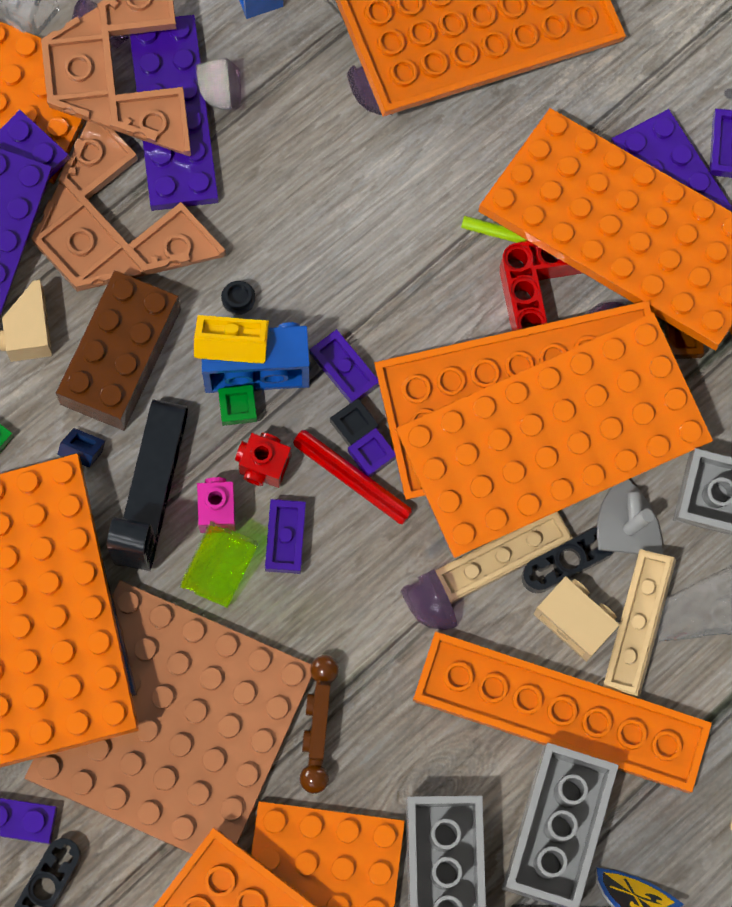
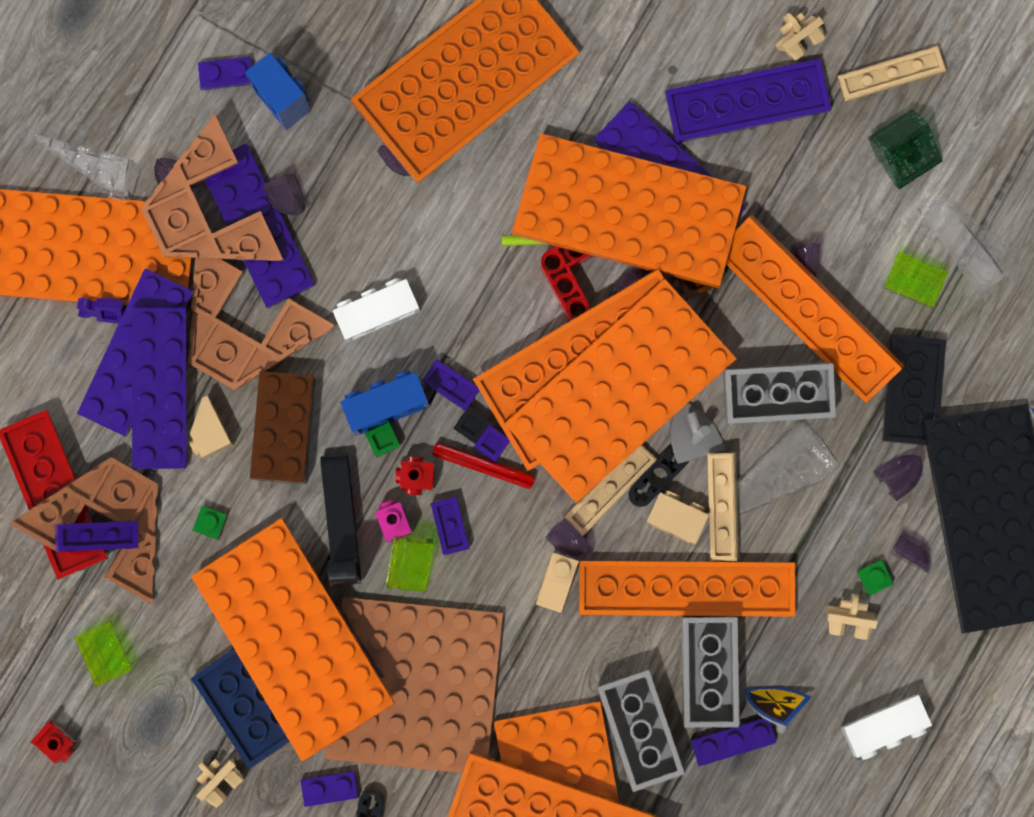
camera: 10 degrees left, 10 degrees up
(83, 444) = (280, 507): dark blue plate -> none
(231, 339) = (364, 400): yellow slope -> none
(238, 297) = (355, 356): black plate -> none
(282, 249) = (375, 309): none -> white brick
(314, 776) = (527, 692): reddish brown plate -> none
(398, 649) = (557, 582): none -> tan slope

